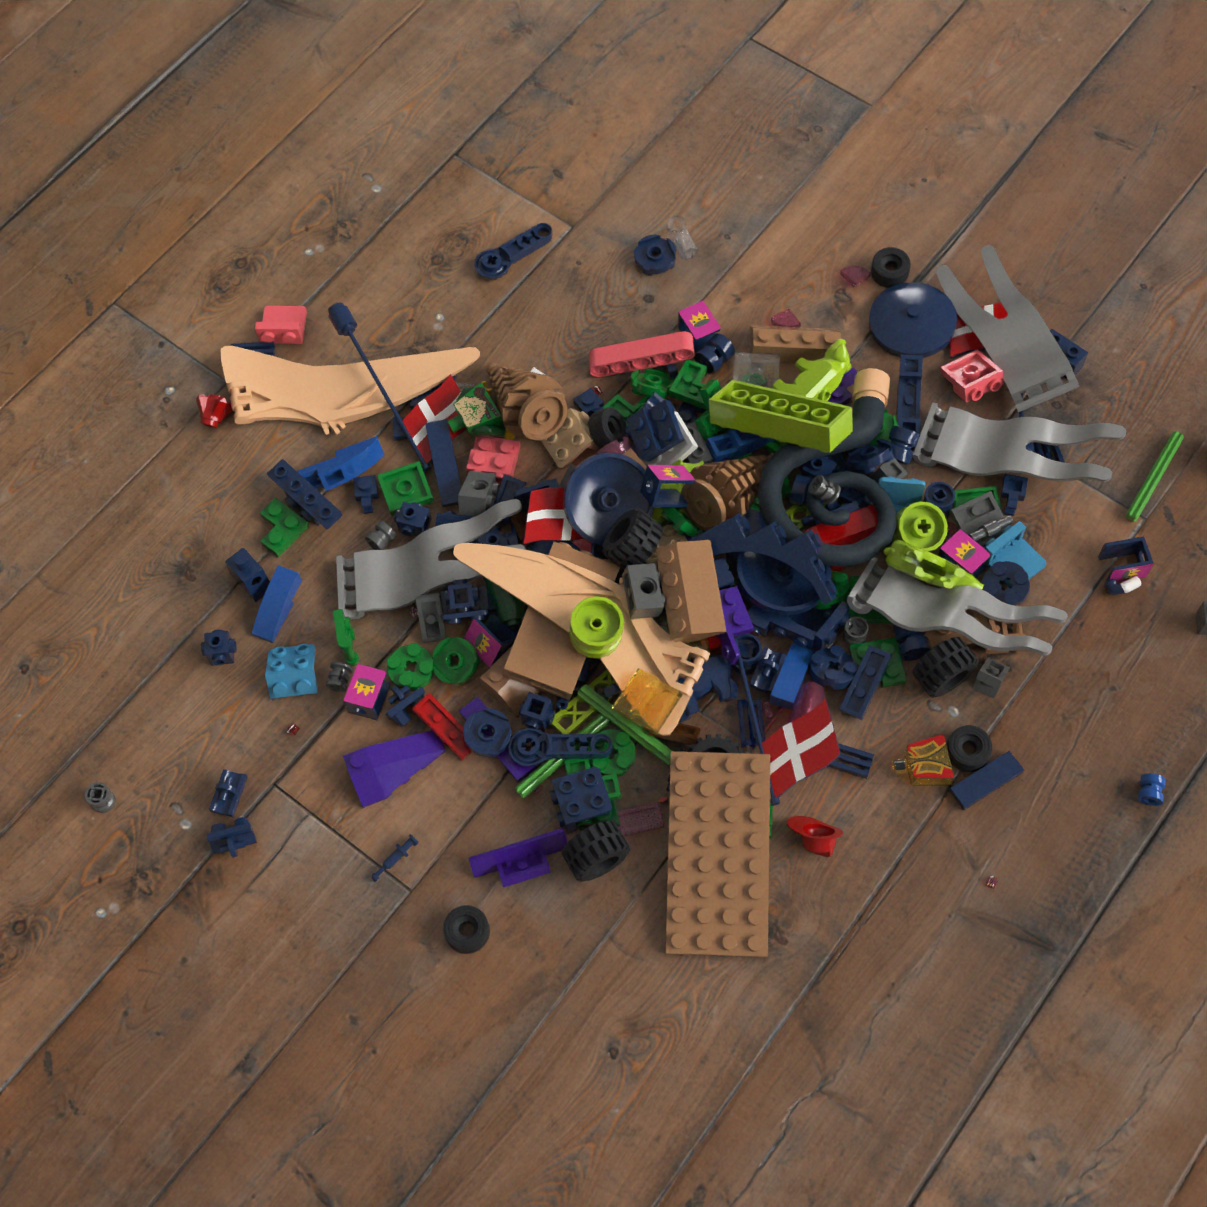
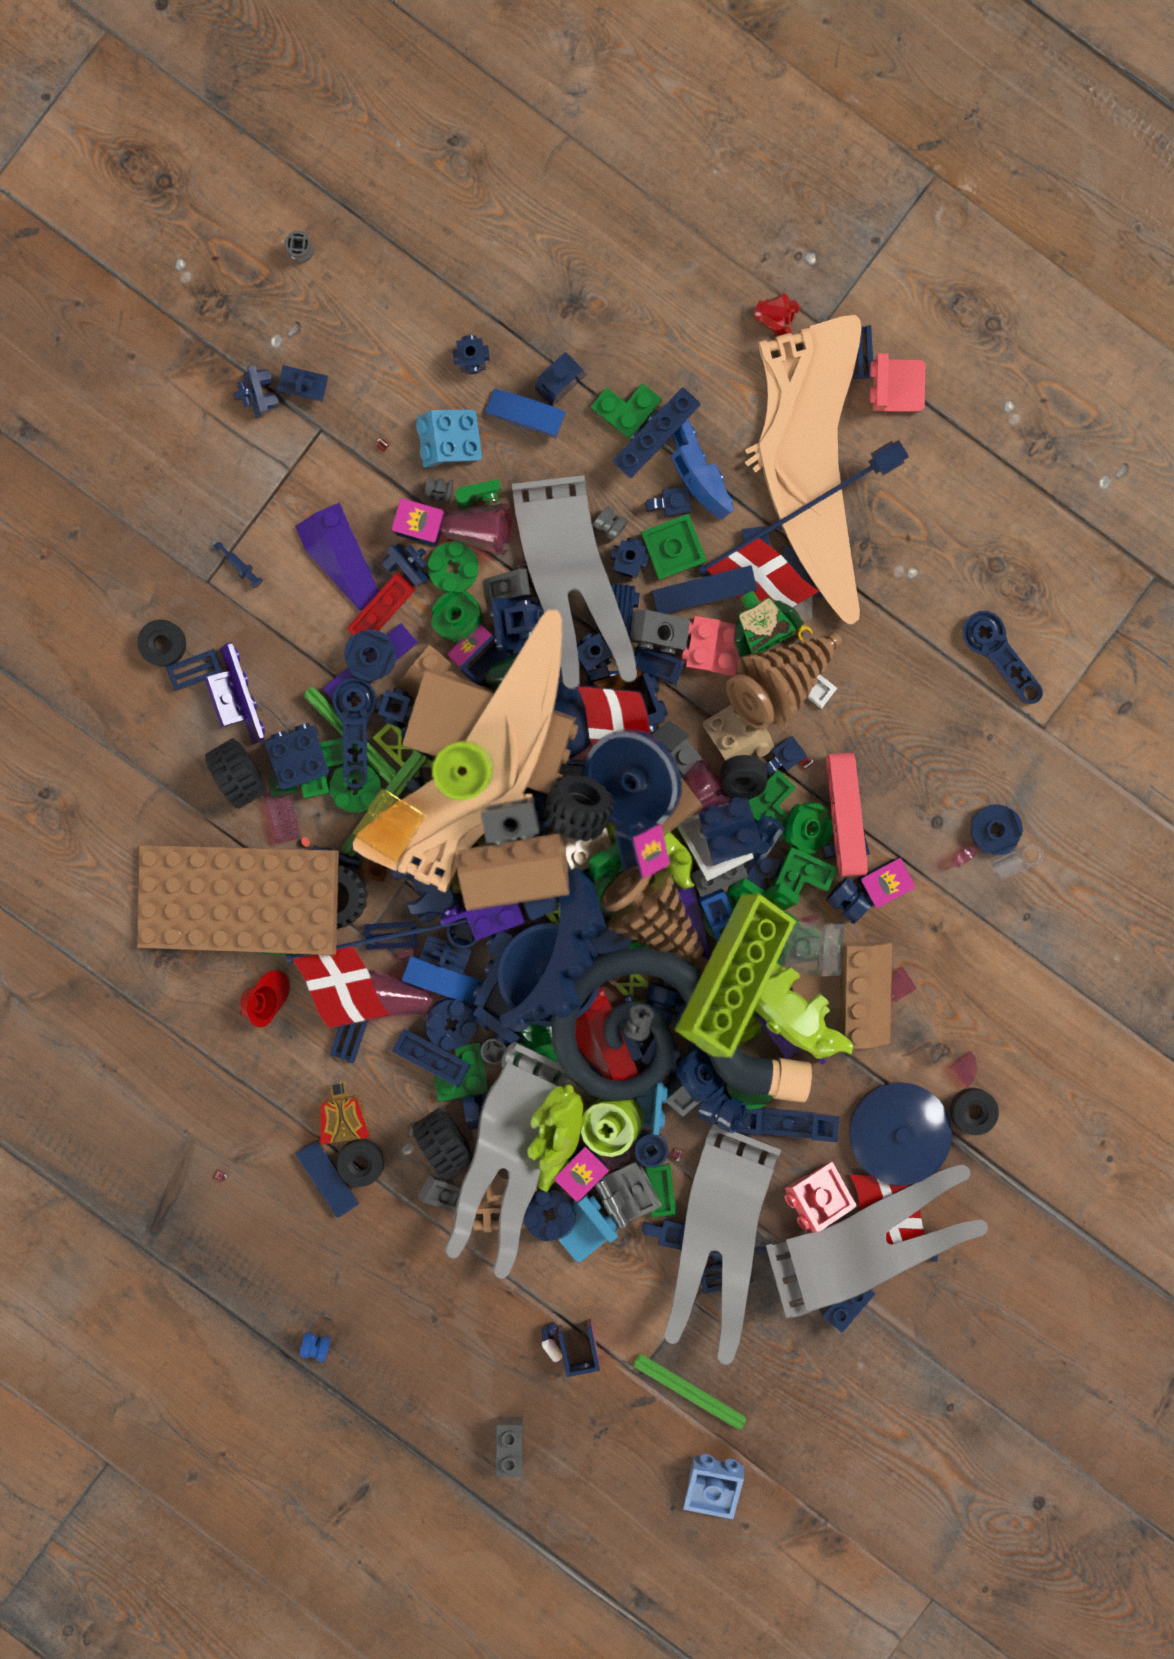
camera: 85 degrees right, 25 degrees up
(376, 637) = (479, 527): none -> clear pink cone
(501, 919) = (215, 662): none -> dark blue tile
(677, 275) = (964, 856): none -> clear pink tile

